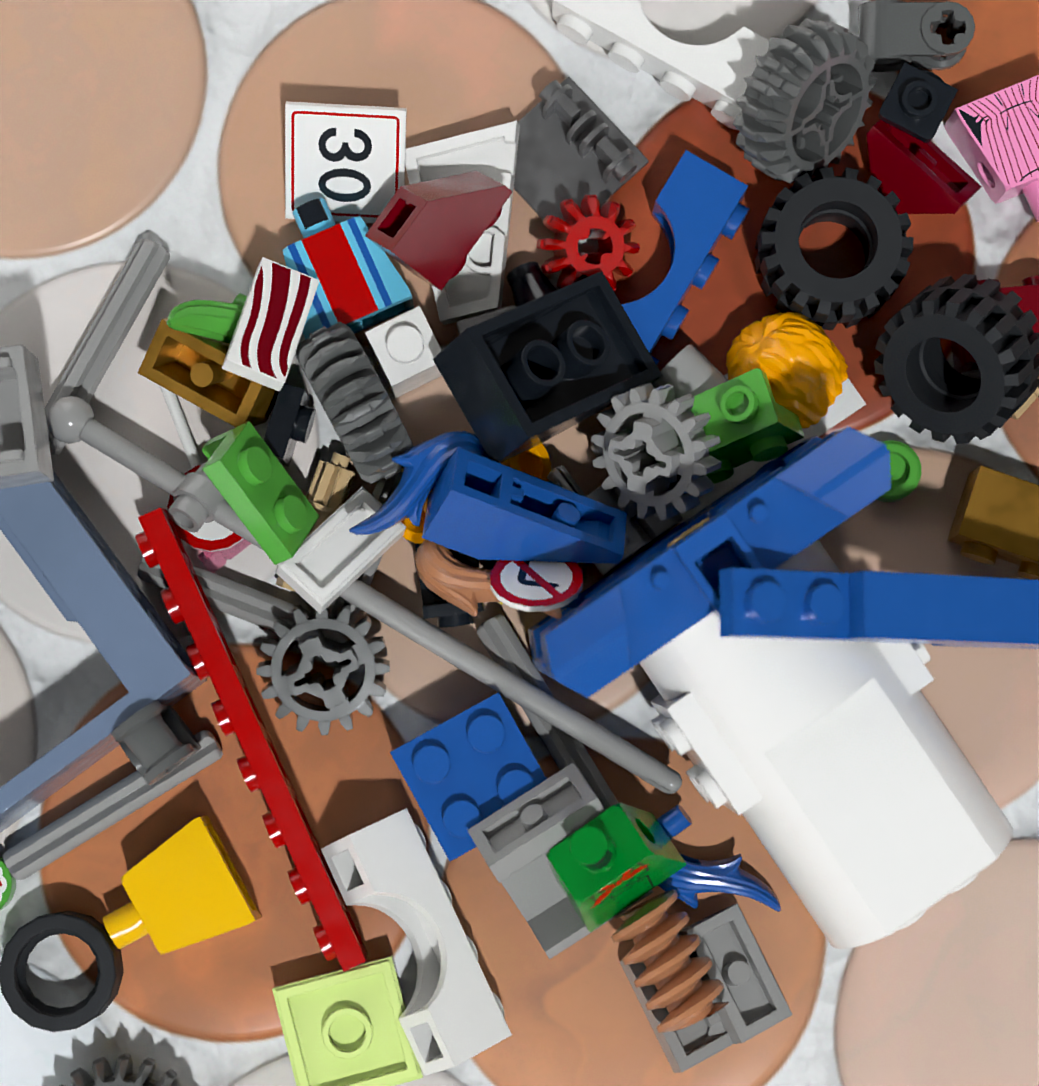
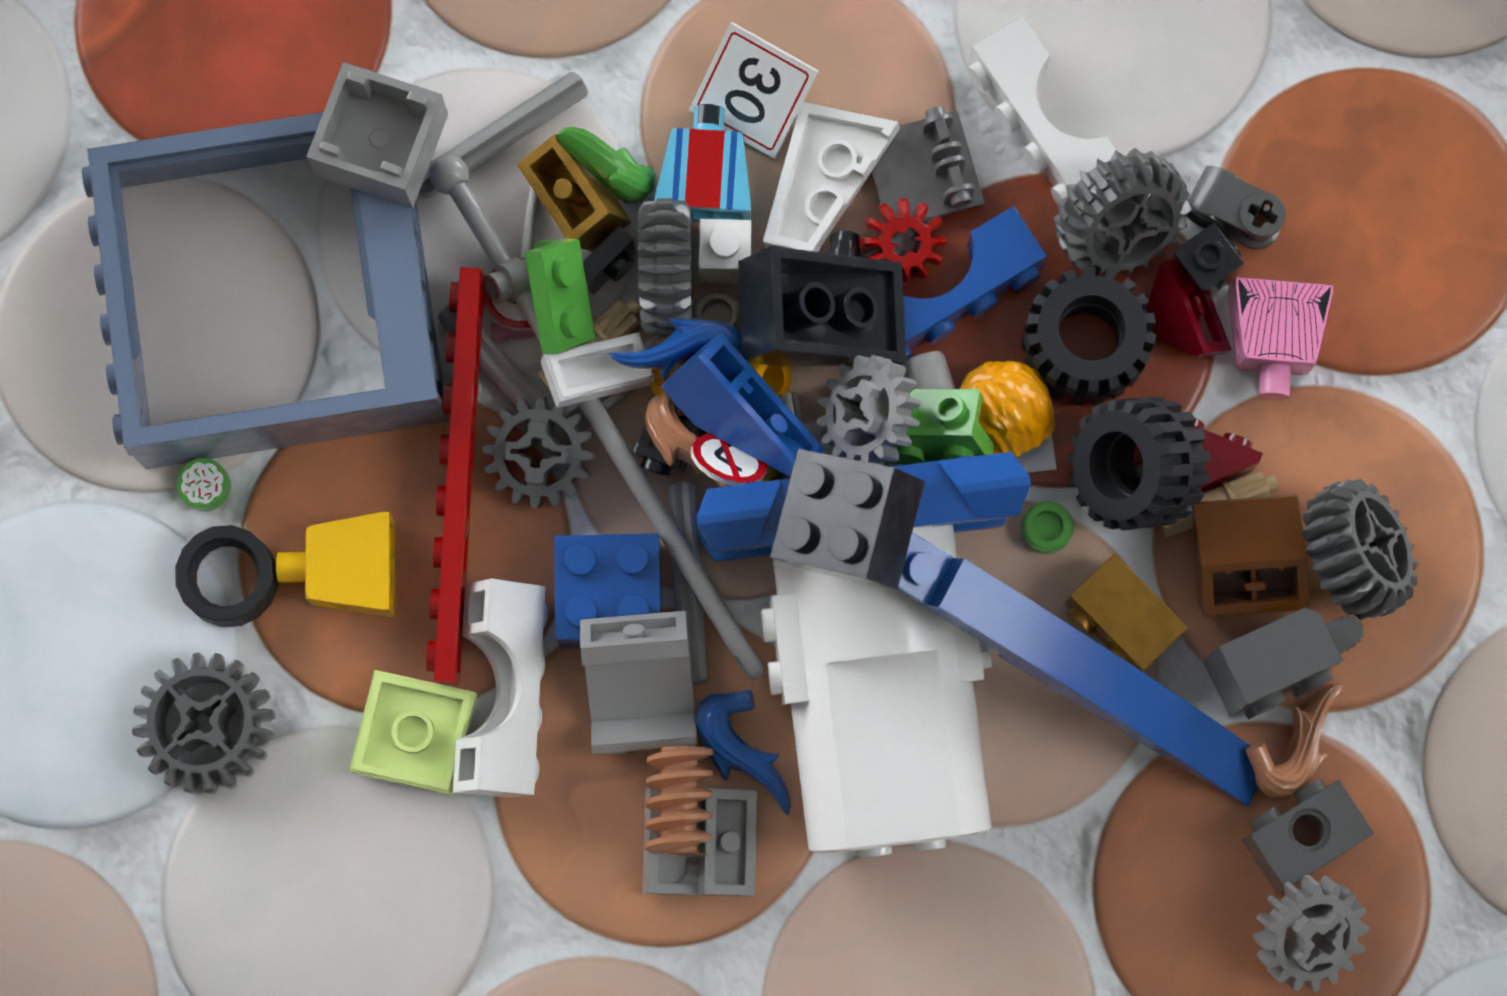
camera: 30 degrees right, 5 degrees down
(102, 812) = (329, 475): light grey axle -> none
(156, 741) = (386, 437): dark grey piece -> none
(270, 324) = (632, 176): tile -> none
(431, 417) = (718, 307): none -> dark tan plate
(437, 223) = (797, 165): dark red slope -> none
(613, 862) = (676, 699): green torso -> none
(725, 598) = (847, 518): none -> piece

